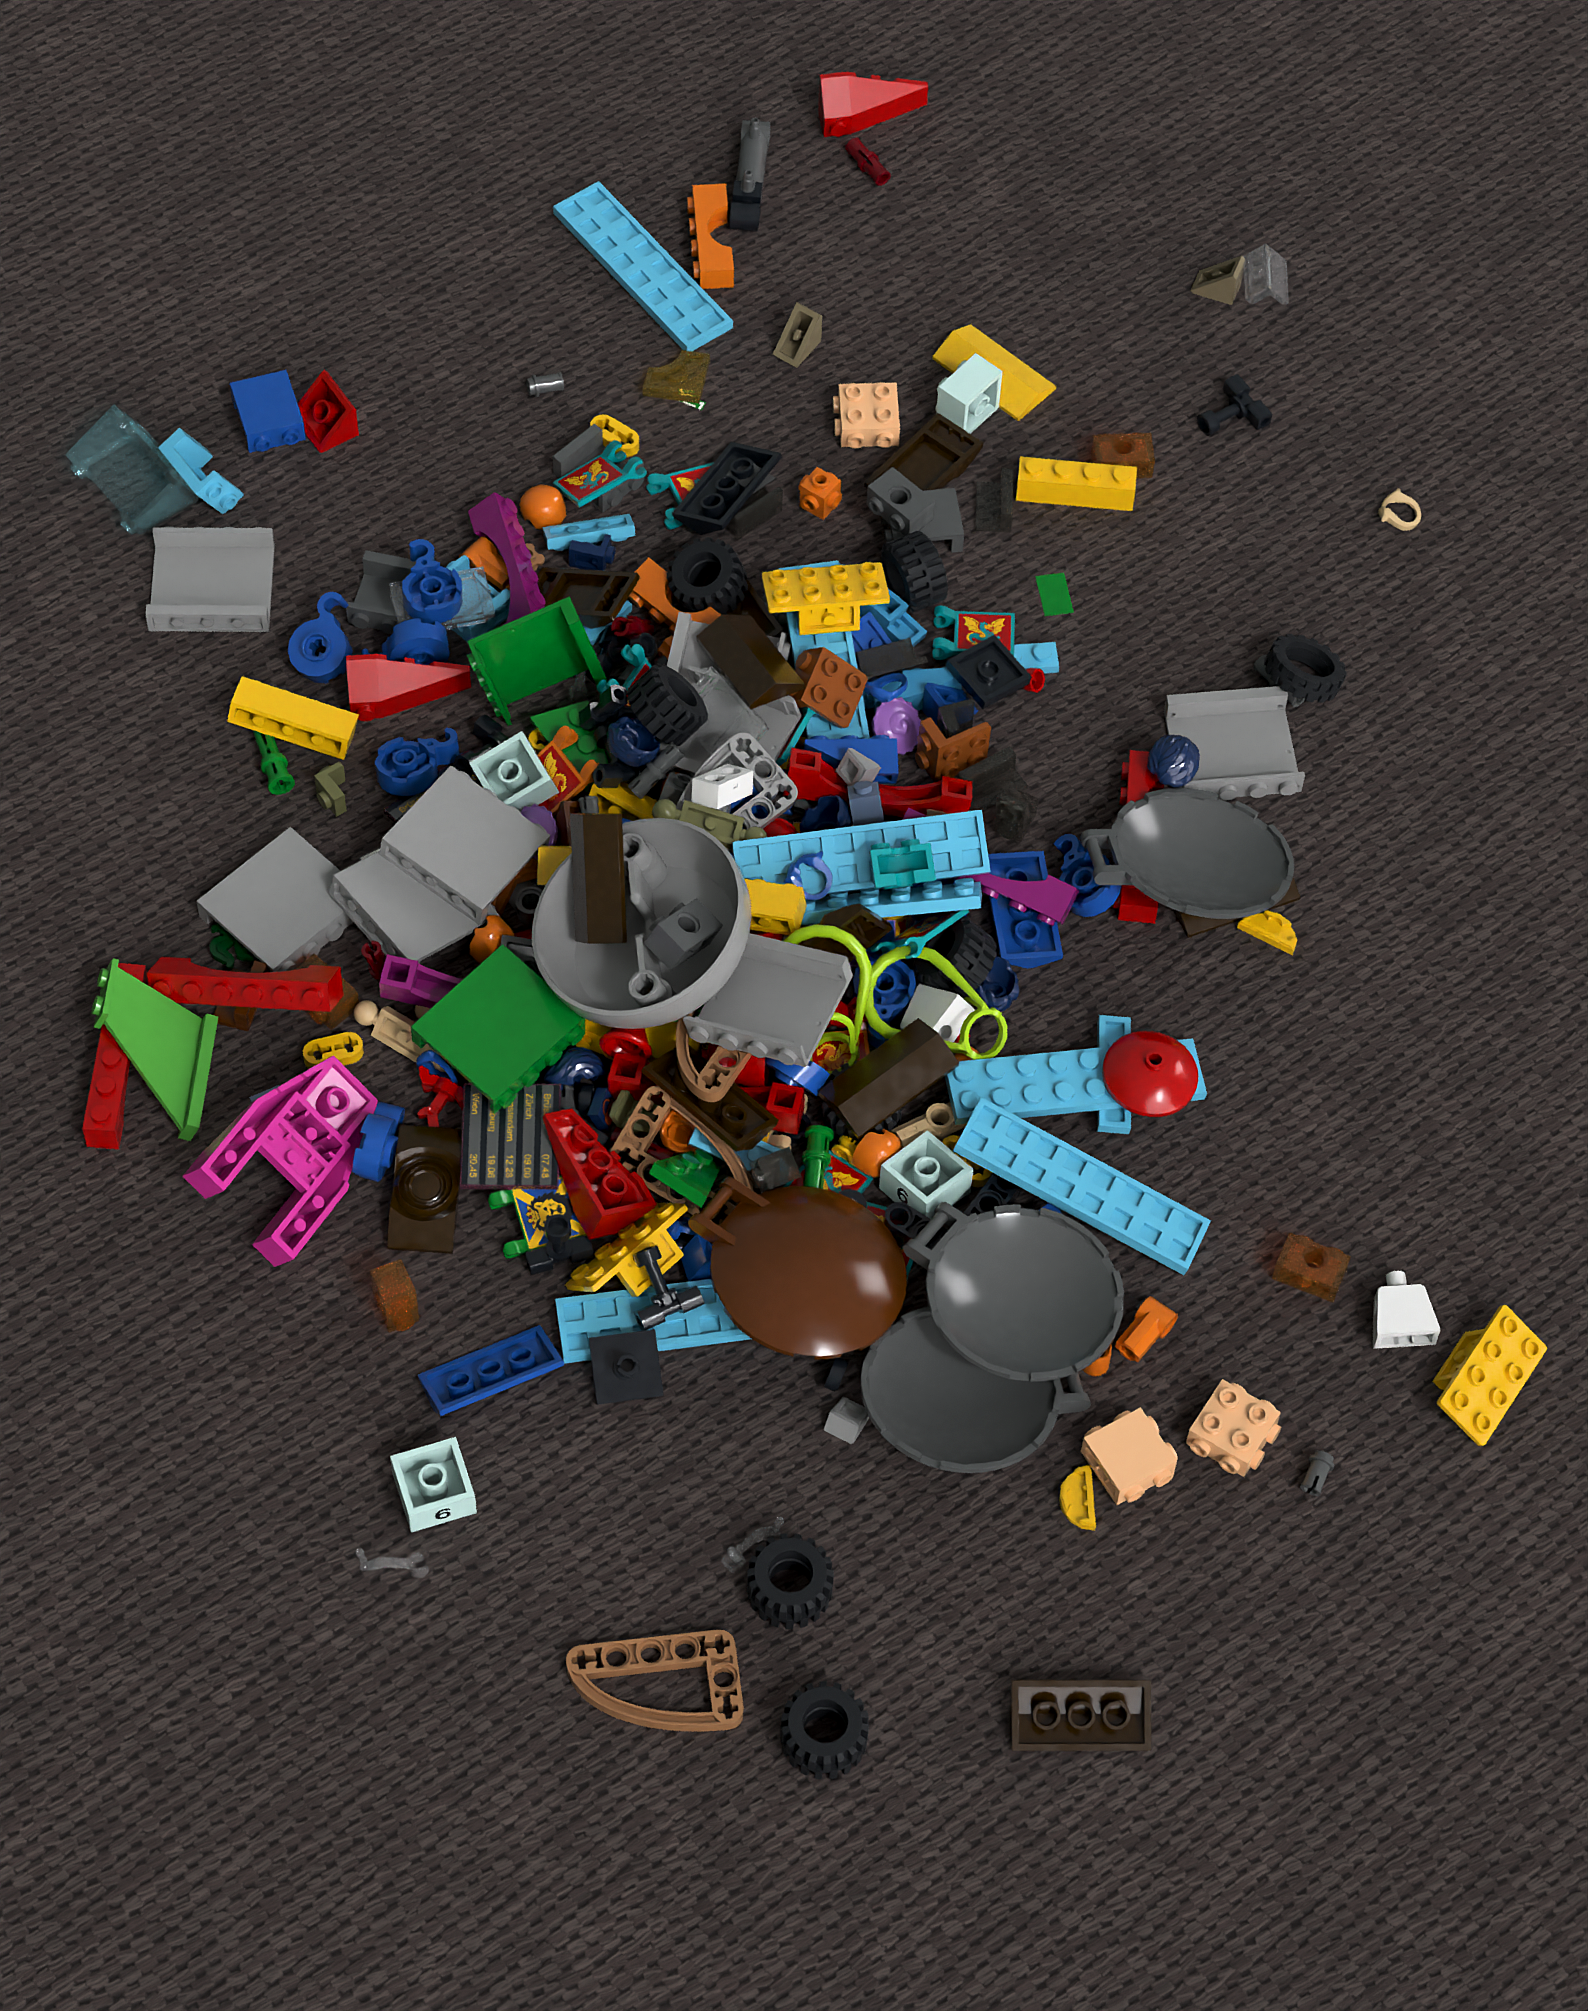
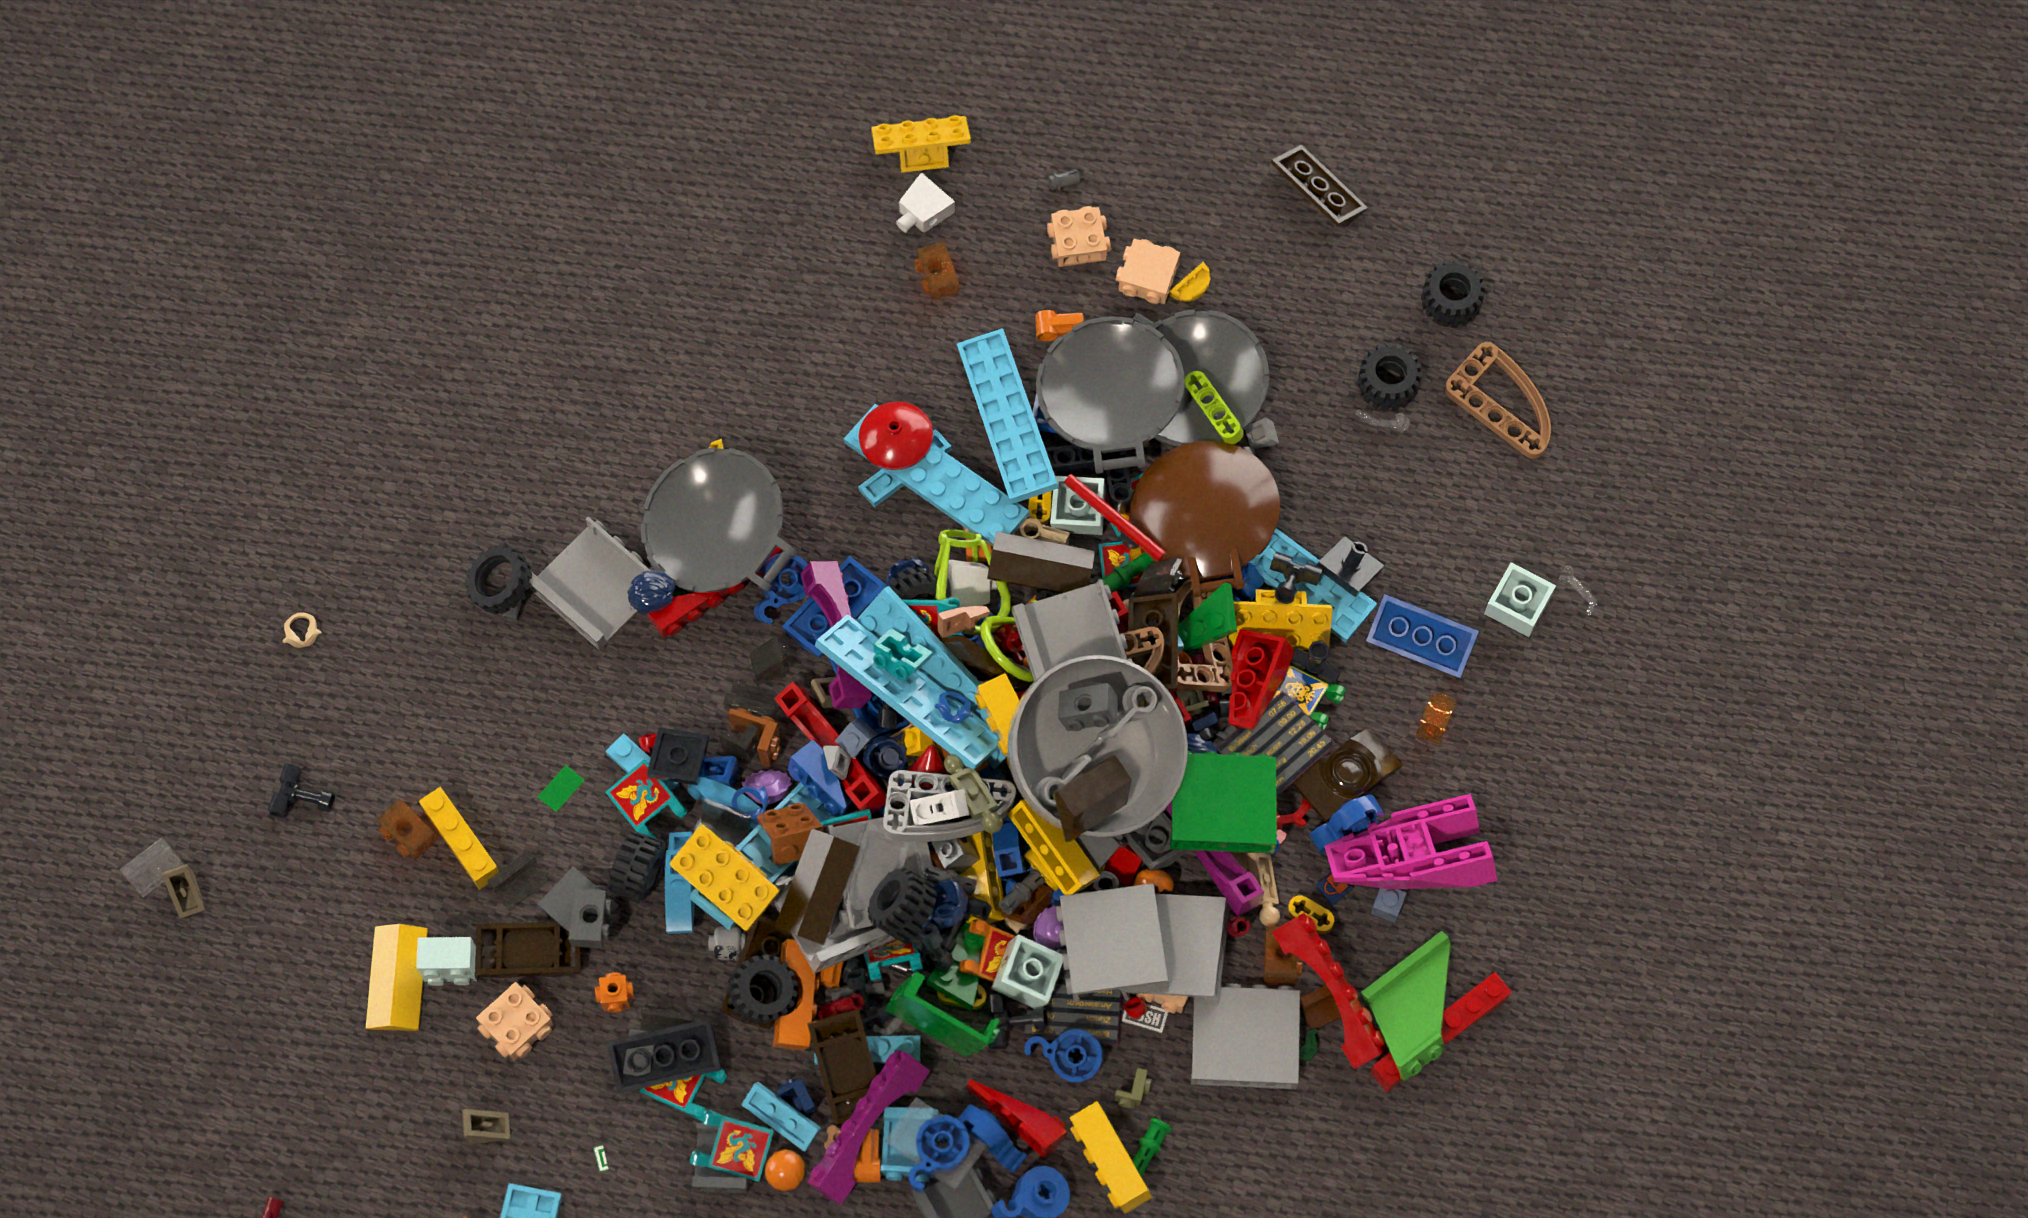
camera: 130 degrees left, 10 degrees up
(618, 432) = (673, 1178): yellow beam -> none
(679, 380) = (588, 1179): clear yellow tile -> none
(845, 1148) = (1099, 566): yellow bush -> none
(874, 1151) = (1088, 539): orange hair -> none
(874, 1176) = (1115, 517): none -> red piece
(894, 934) = (959, 619): none -> nougat slope
(913, 1372) = (1213, 407): none -> lime beam

